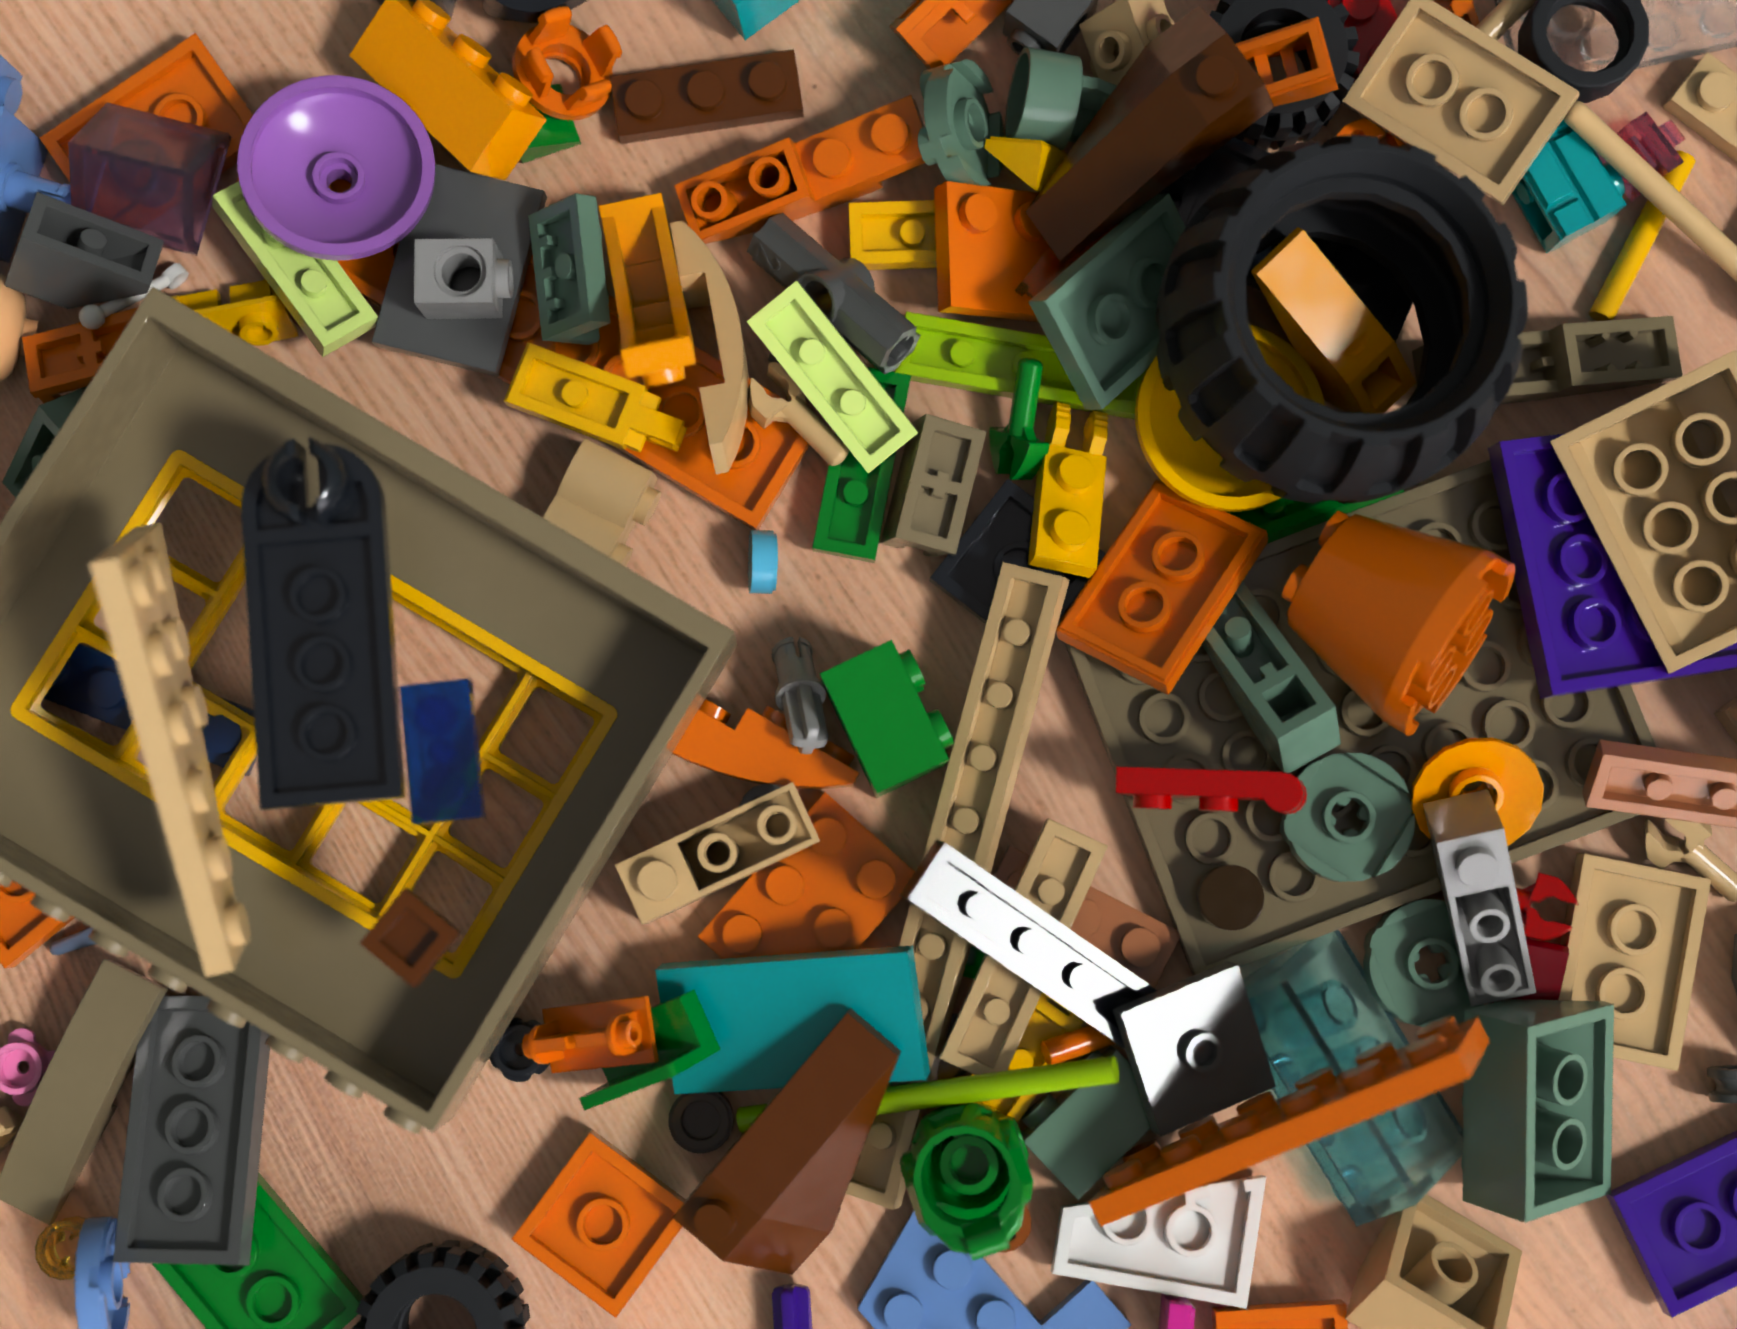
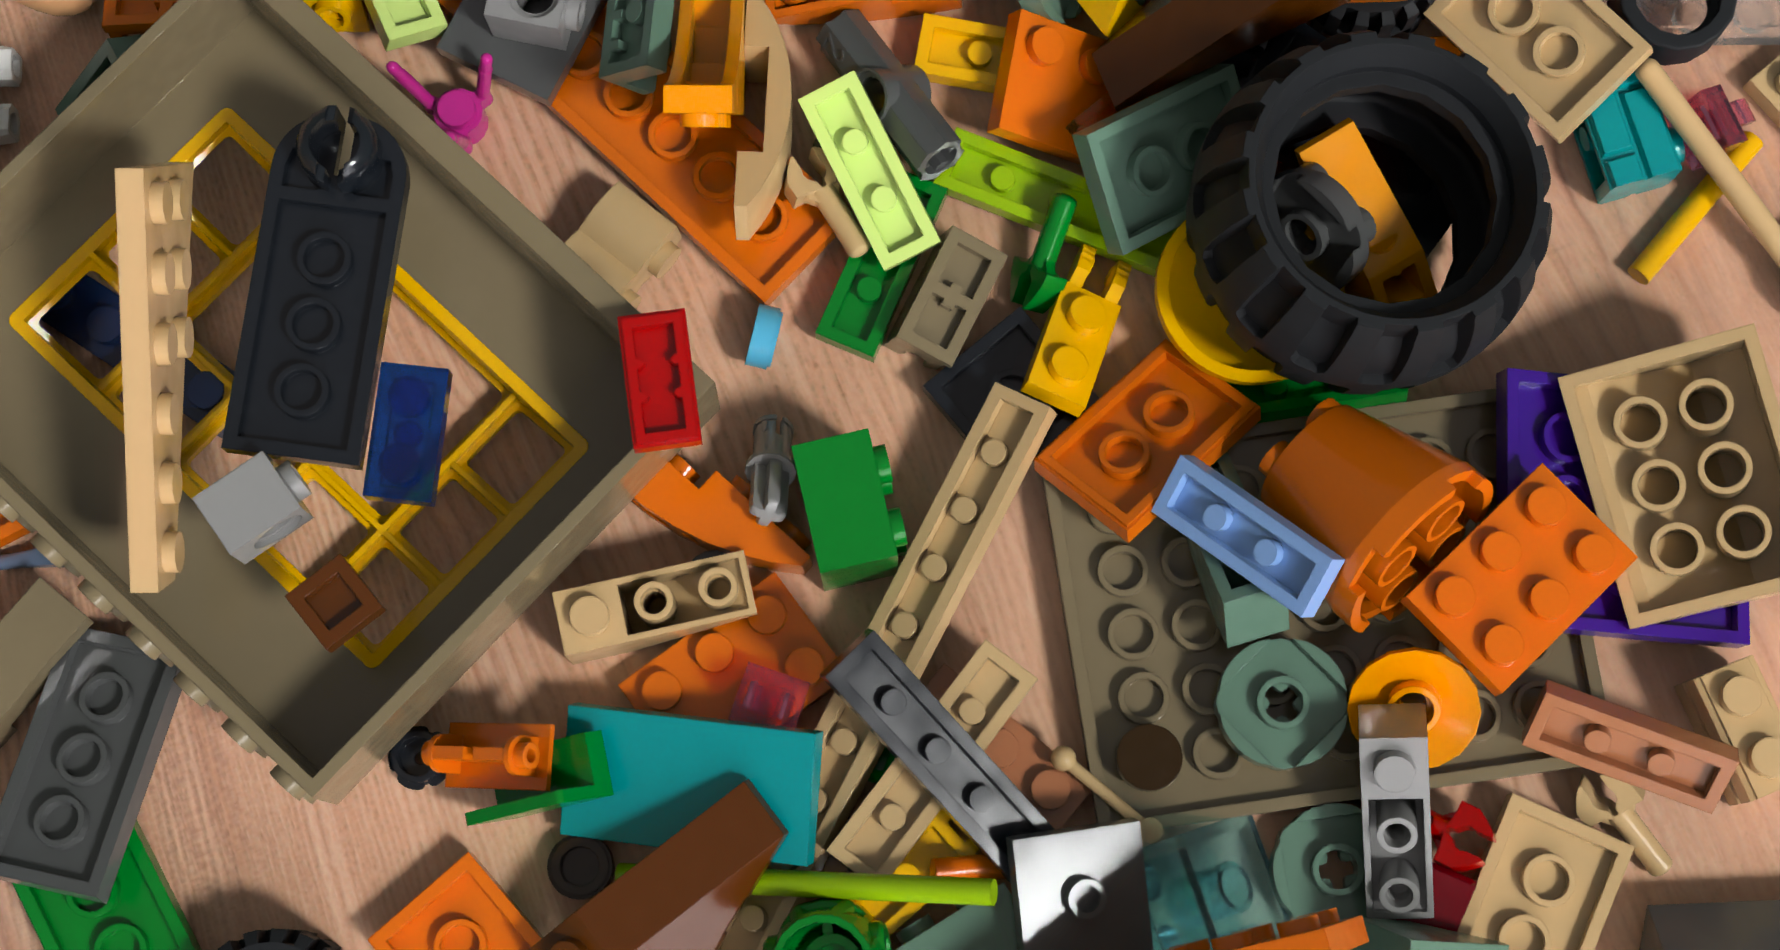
camera: 15 degrees right, 5 degrees down
(308, 859) = (255, 506): none -> light grey brick
(407, 400) = (456, 111): none -> dark pink plant
(590, 401) = (632, 147): yellow hinge -> none
(680, 644) = (659, 380): none -> red plate
(849, 921) = (769, 697): none -> clear pink tile
(1148, 915) = (1064, 759): none -> tan hinge
(1215, 788) = (1153, 642): red plate -> none
(1288, 668) = (1248, 536): none -> light blue plate
(1311, 336) = (1339, 224): none -> dark grey plate
(1555, 650) = (1519, 579): none -> orange plate
(1591, 358) = (1610, 311): dark tan slope -> none

